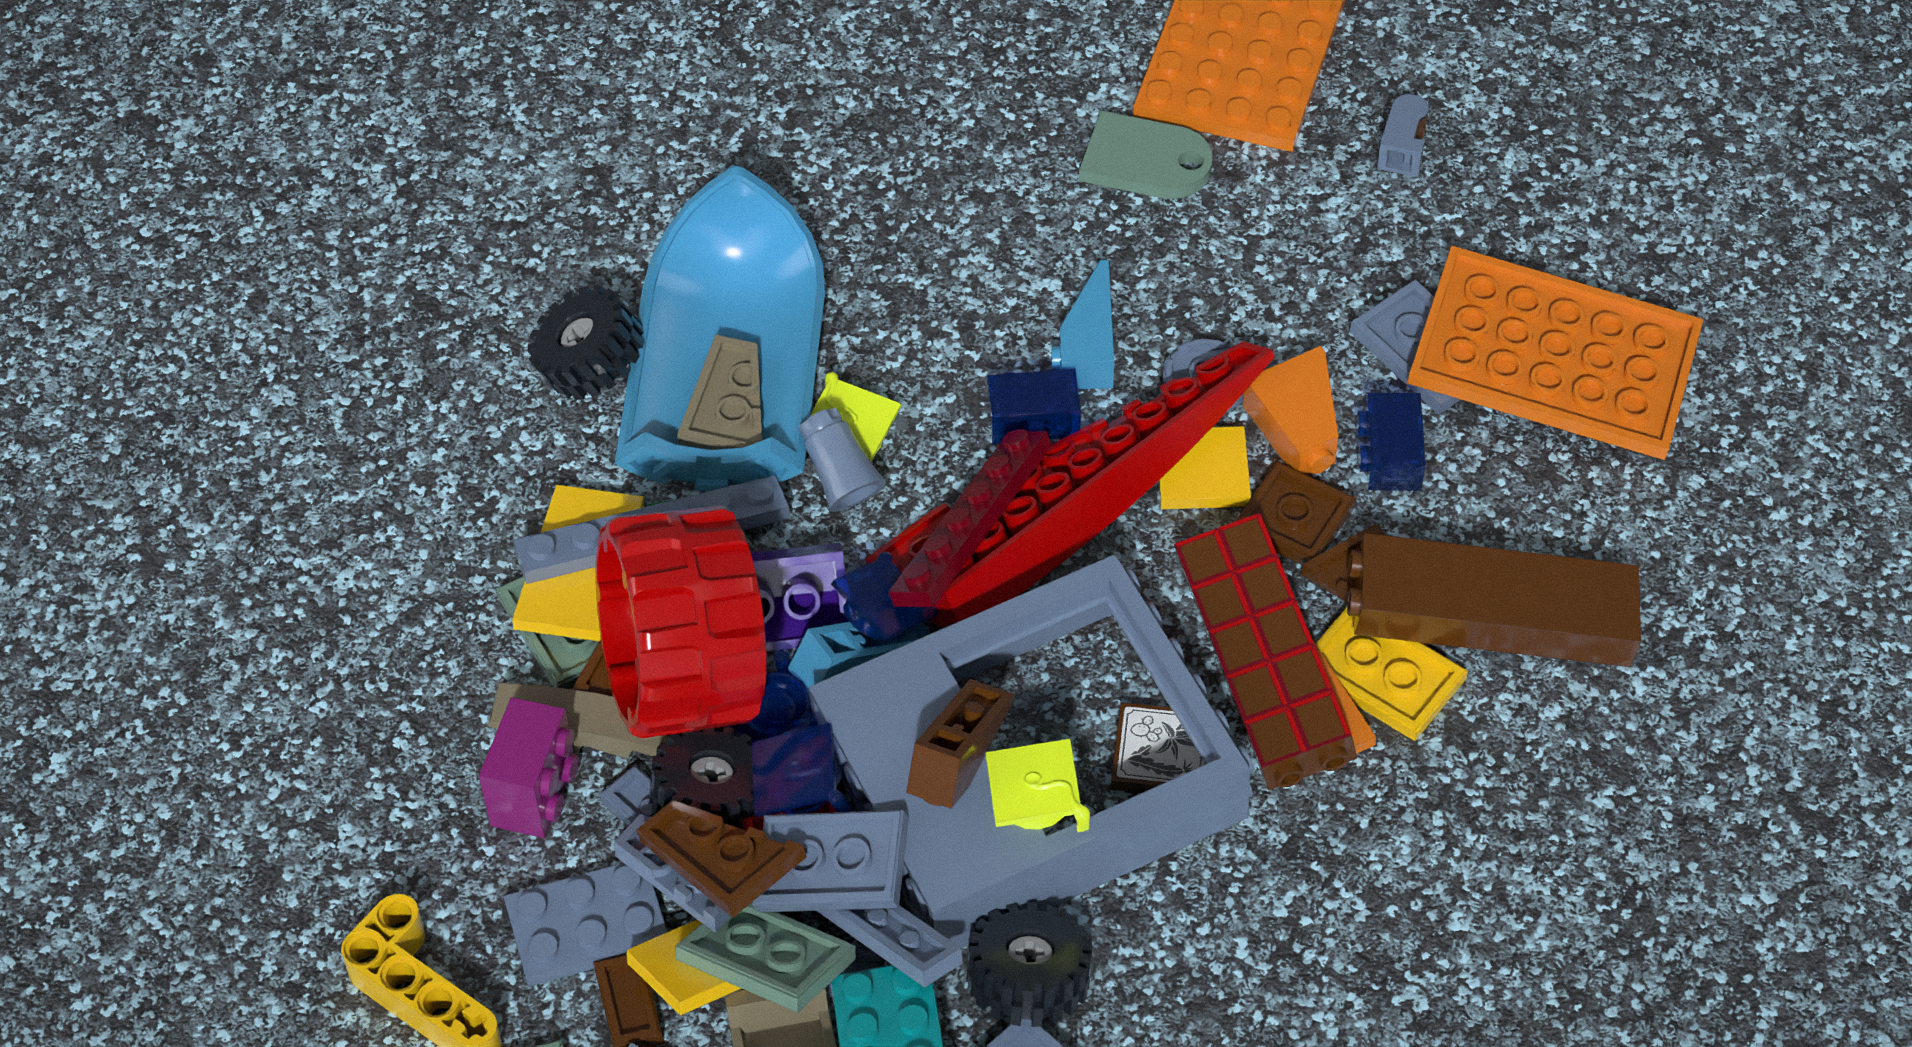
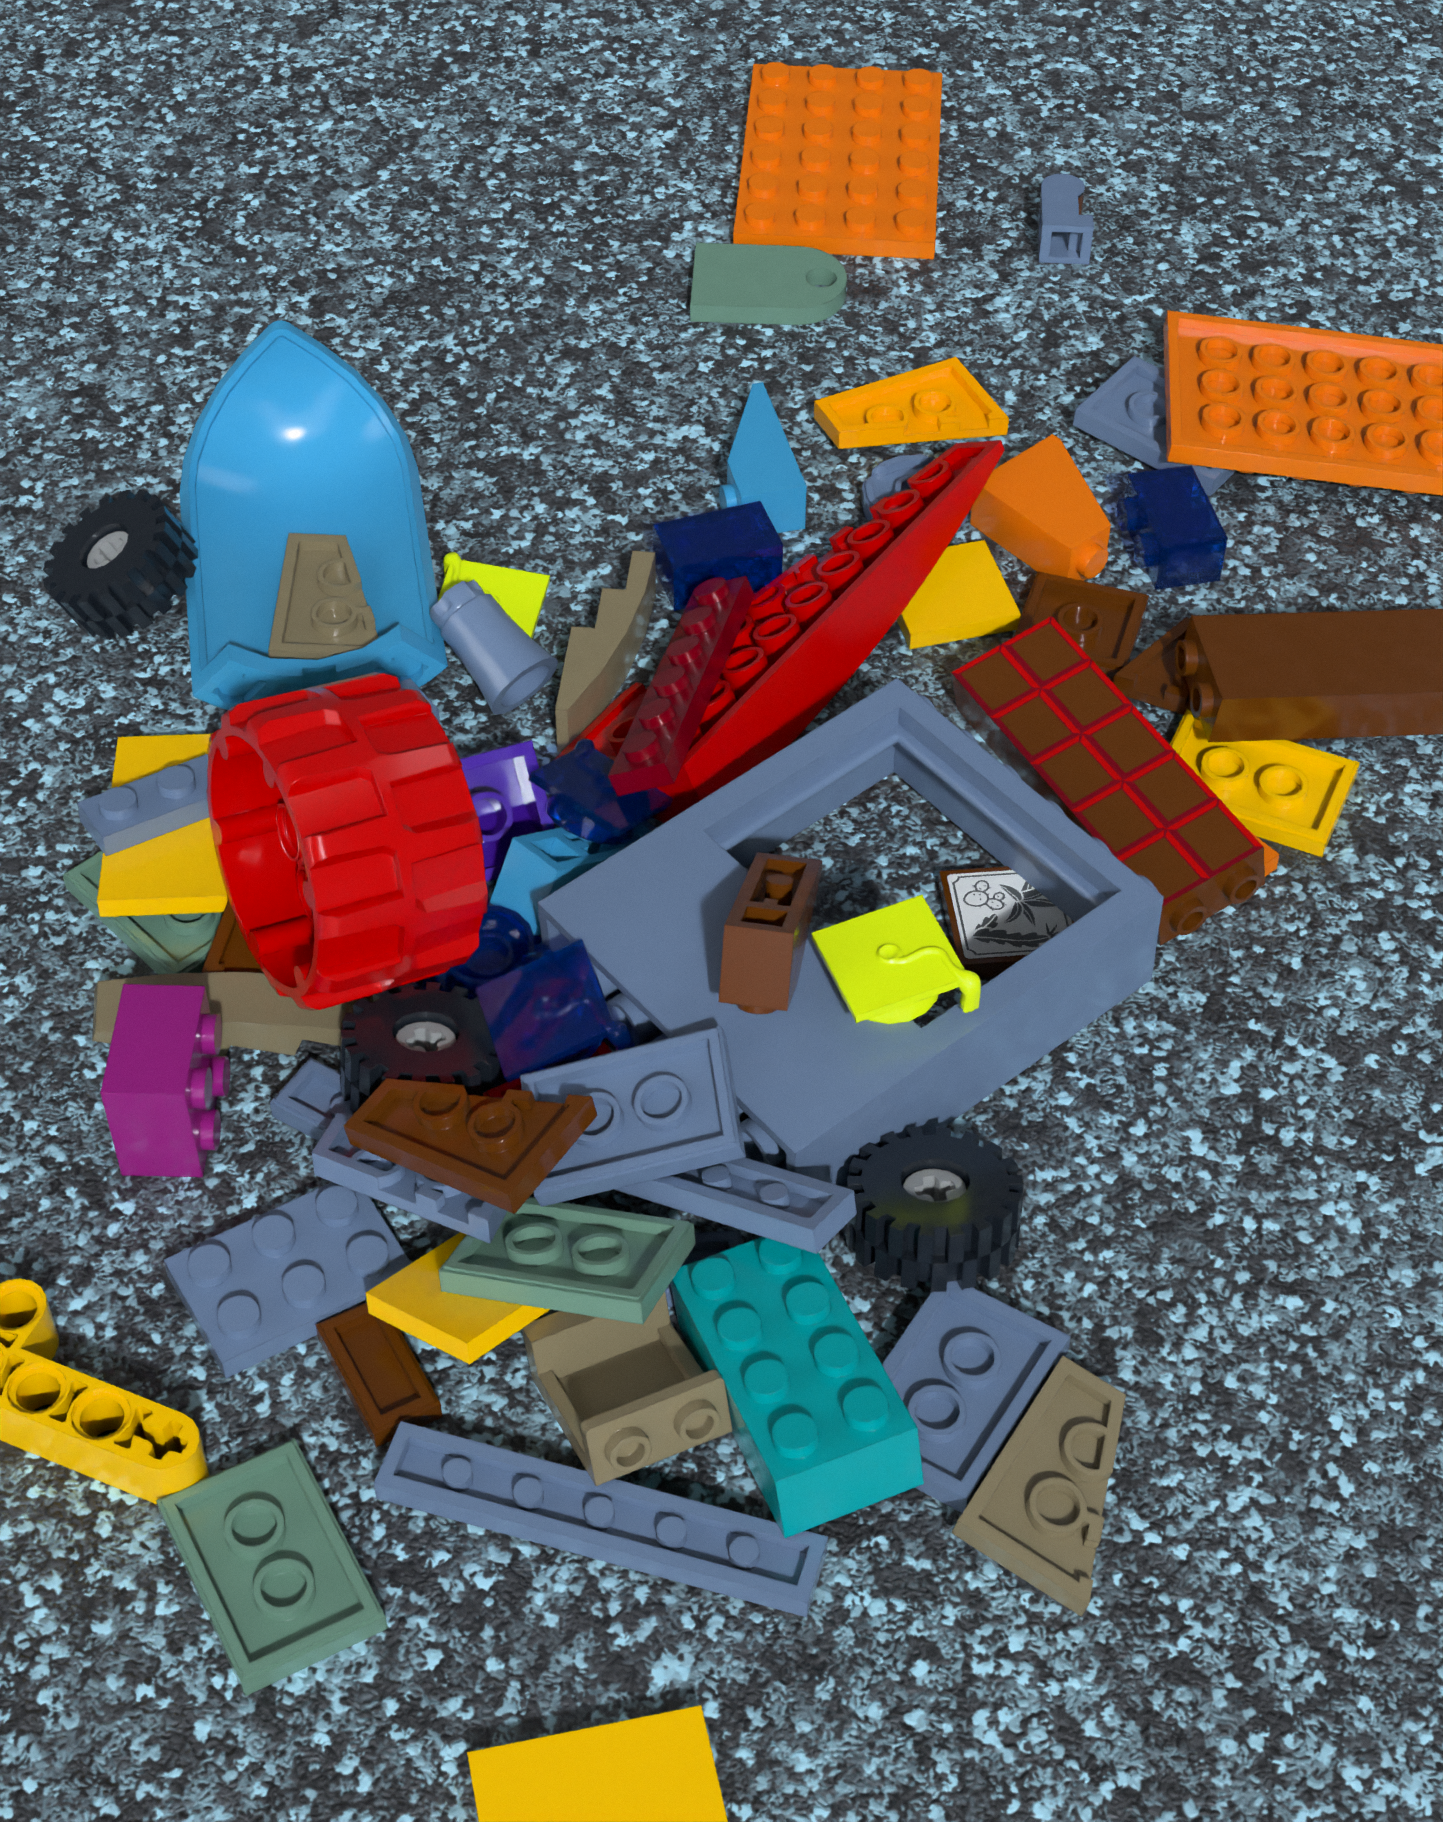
camera: 15 degrees left, 5 degrees down
(924, 479) = (603, 655): none -> dark tan slope
(1225, 296) = (912, 407): none -> light orange wing

